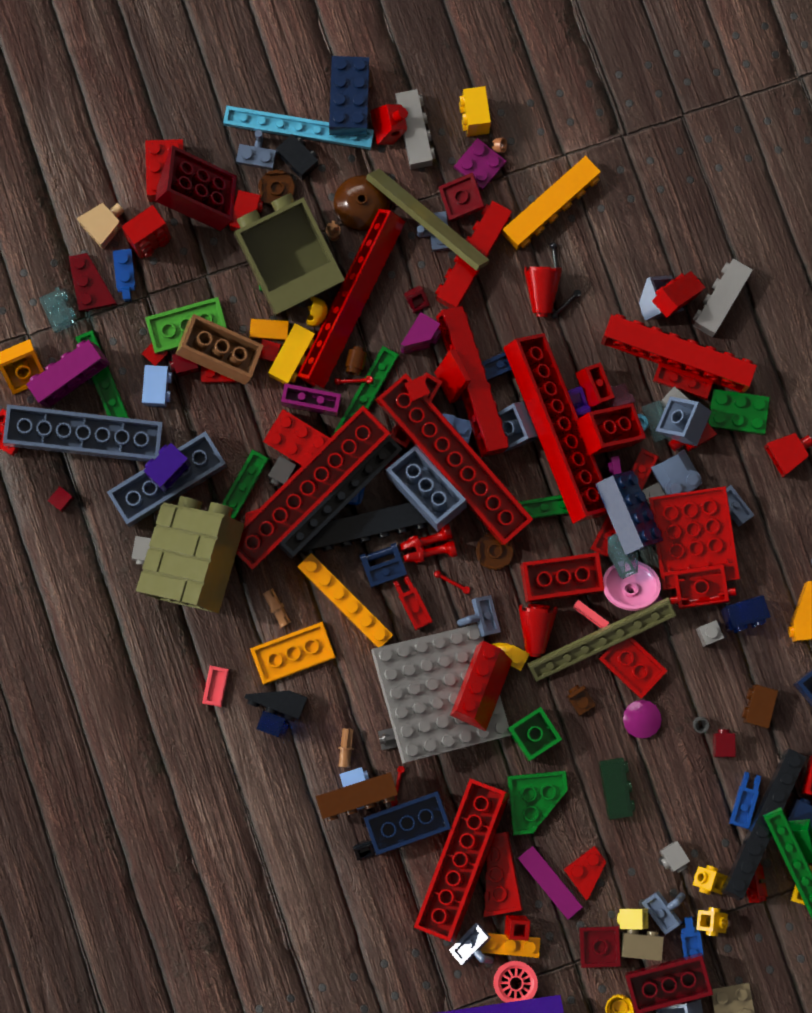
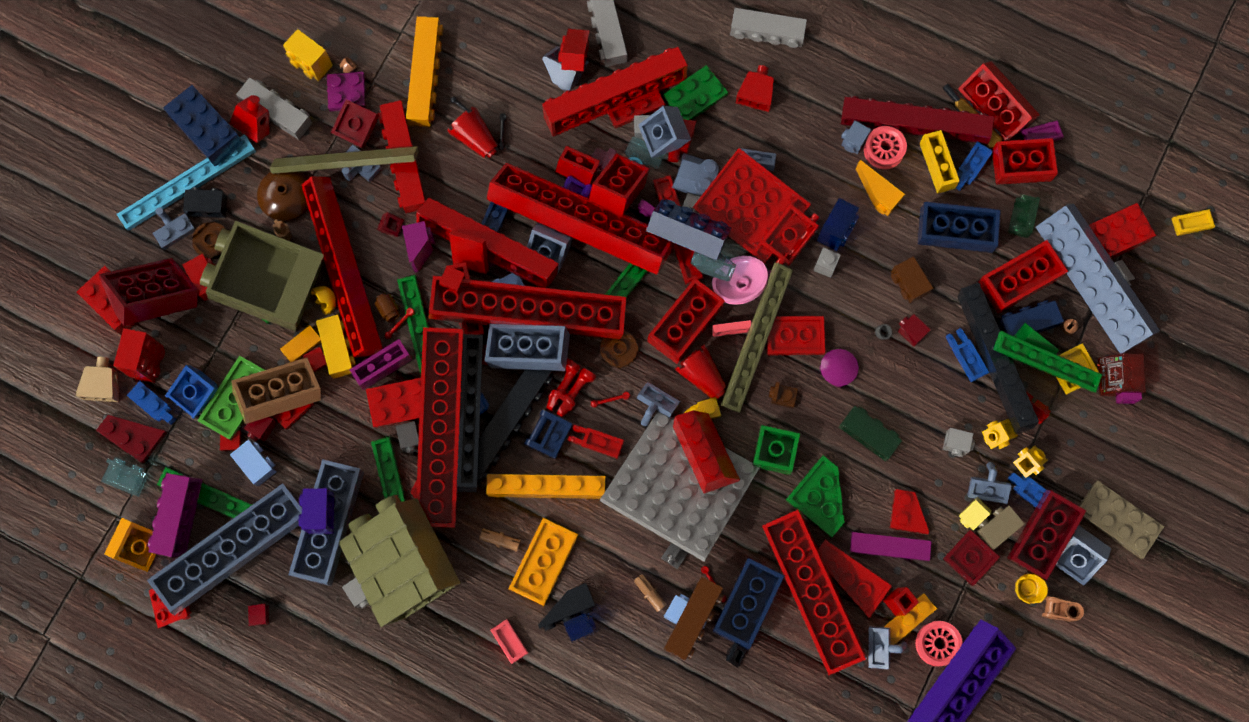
camera: 40 degrees left, 5 degrees down
(161, 291) = (192, 390): none -> blue slope

